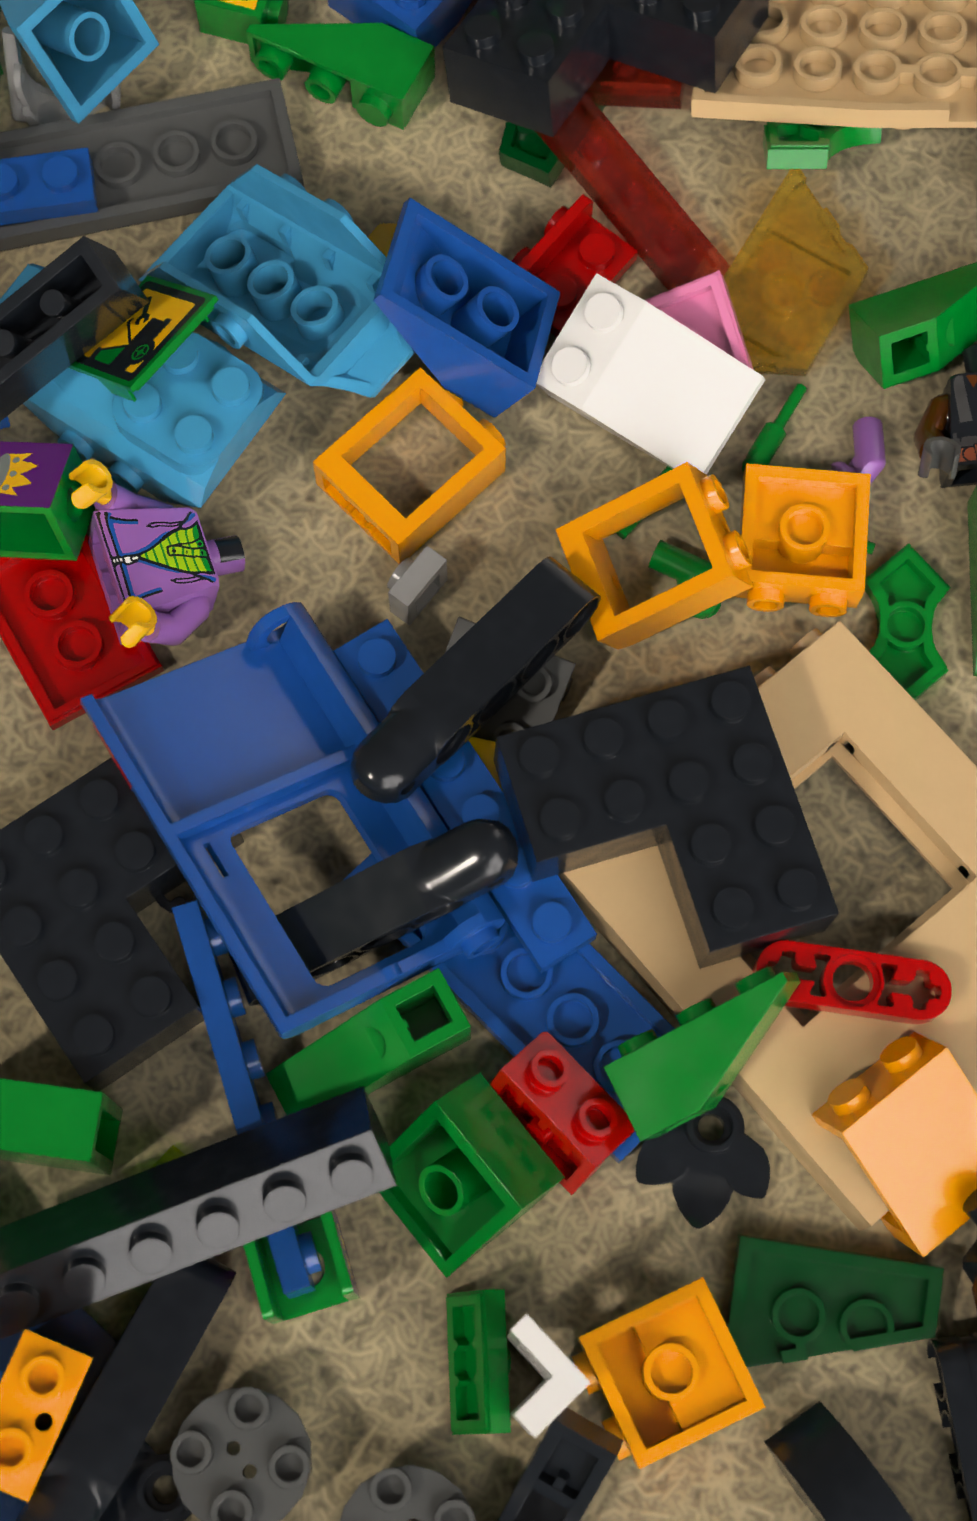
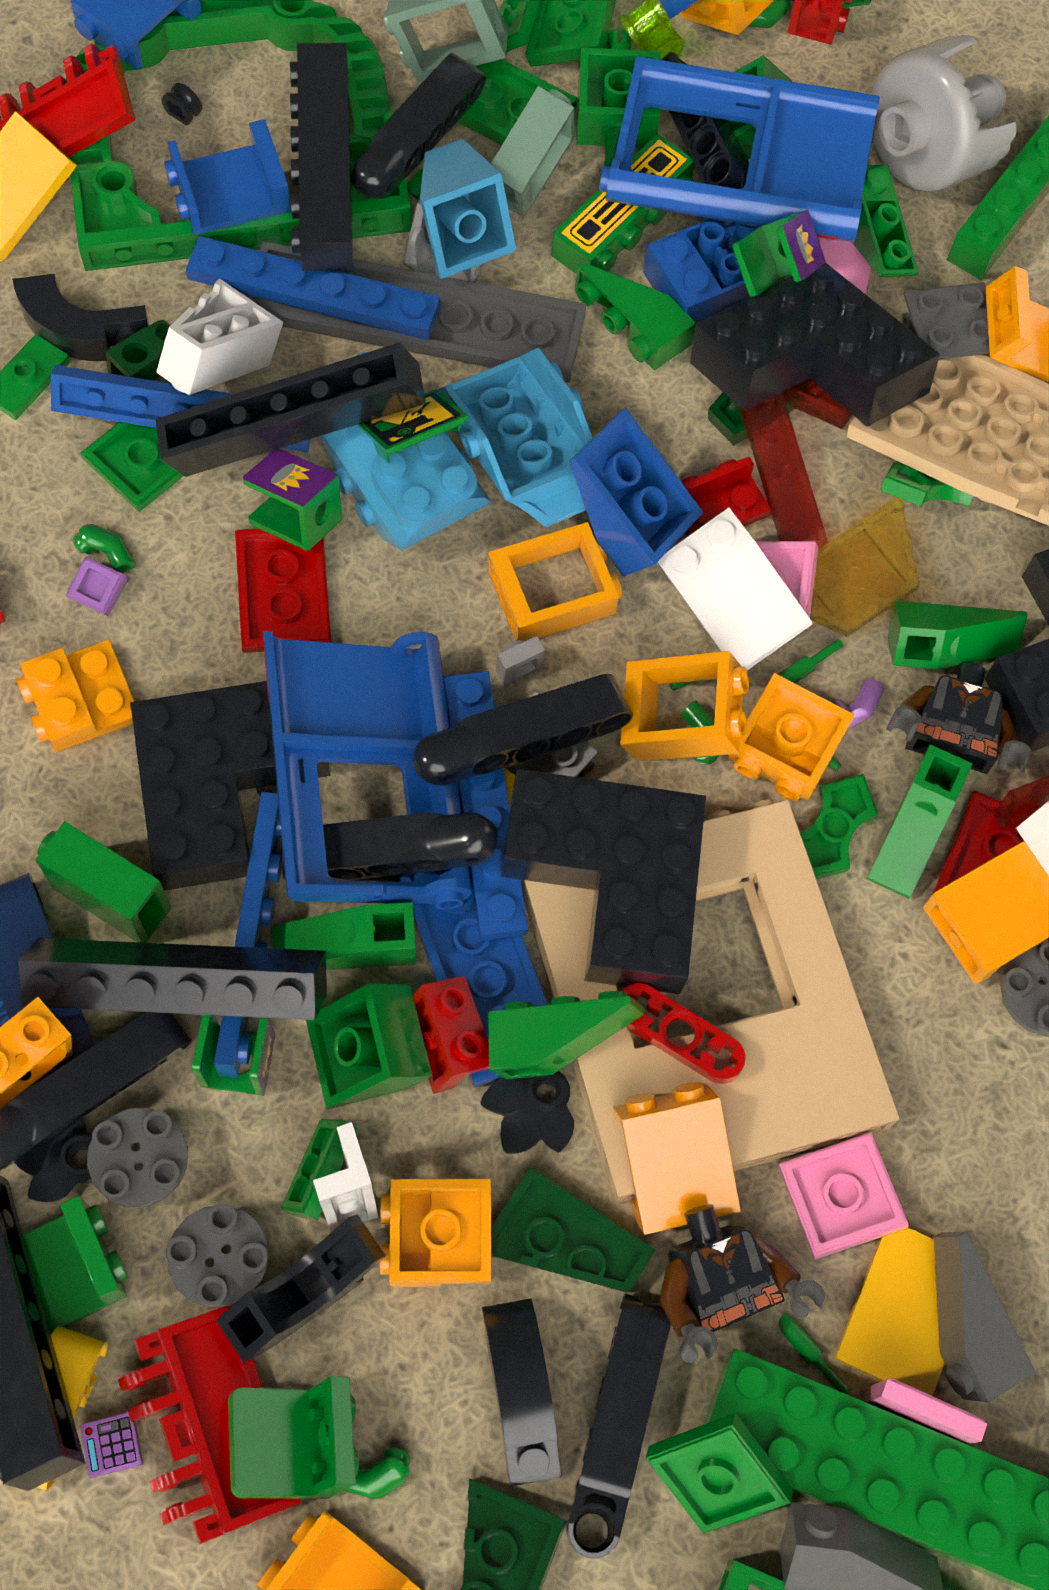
camera: 20 degrees right, 5 degrees down
(151, 560) = (355, 570): torso -> none

